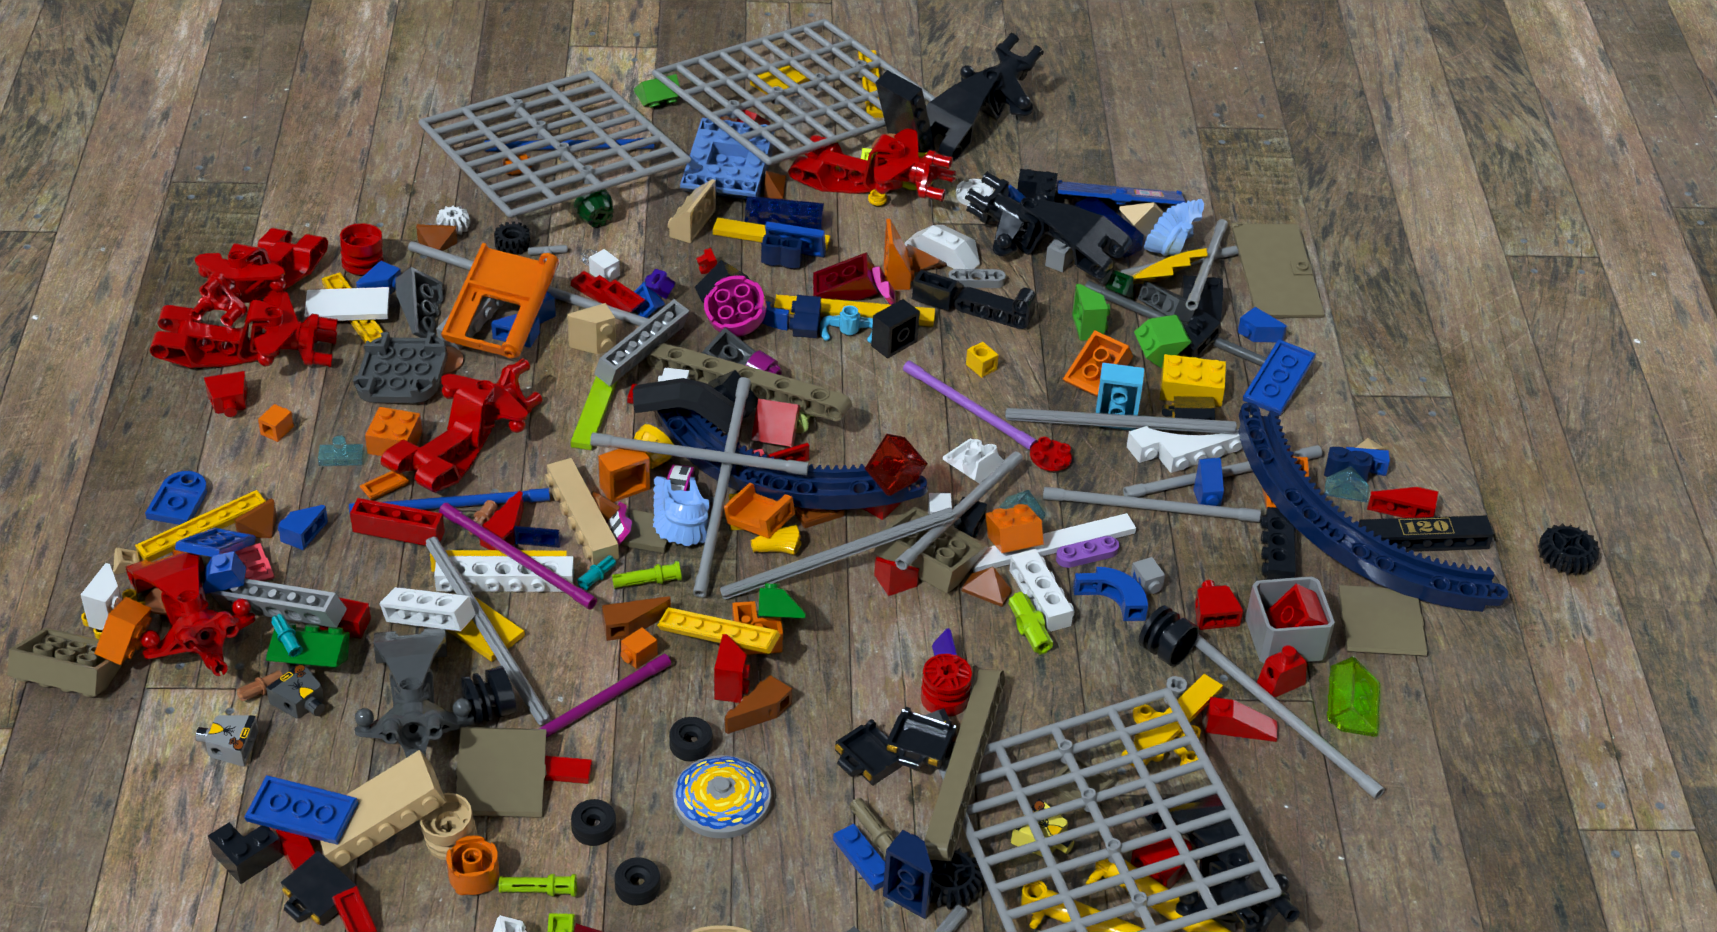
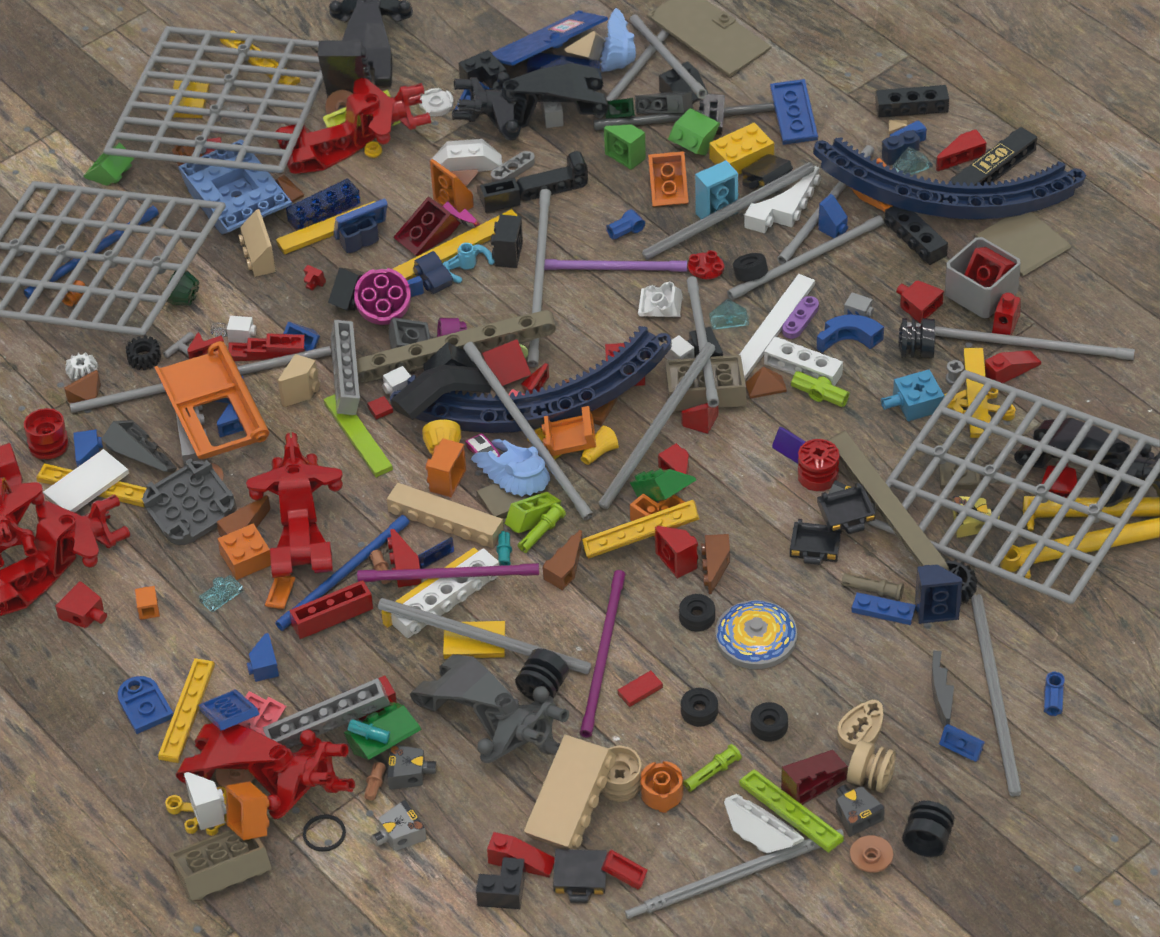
camera: 35 degrees left, 5 degrees up
(123, 558) = (164, 771): tan slope -> none
(181, 715) = (324, 816): none -> black piece
(223, 573) = (271, 721): blue slope -> none
(259, 520) = (228, 677): dark orange slope -> none
(301, 809) = (522, 829): blue tile -> none
(427, 609) = (431, 650): white brick -> none
(431, 409) = (244, 516): none -> dark orange slope
(502, 770) = (607, 714): dark tan piece -> none
(567, 266) = (199, 347): none -> red slope
(606, 507) = (463, 498): dark orange slope -> none
(620, 524) = (484, 504): slope -> none
(639, 648) = (595, 578): orange brick -> none
(645, 553) = (526, 513): none -> lime slope
(659, 283) = (300, 315): dark purple bracket -> none
(788, 466) = (427, 449): light grey piece -> none
(825, 600) = (674, 459): none -> red slope
(895, 464) = (644, 336): clear red slope -> none
(959, 317) = (544, 203): none -> light grey piece
(982, 359) = (586, 226): yellow brick -> none
(1014, 528) = (746, 331): orange piece -> none
(1023, 379) = (629, 222): none -> blue piece
(1085, 479) = (750, 267): none -> black tyre
(1110, 684) = (915, 395): none -> dark azure brick
(1168, 266) = (640, 75): yellow slope -> none
(1261, 327) = (743, 81): blue slope -> none
(1353, 698) = (1060, 304): clear neon green slope -> none
(1406, 433) = (912, 101): none -> black brick
(1568, 549) = (1085, 118): black gear -> none

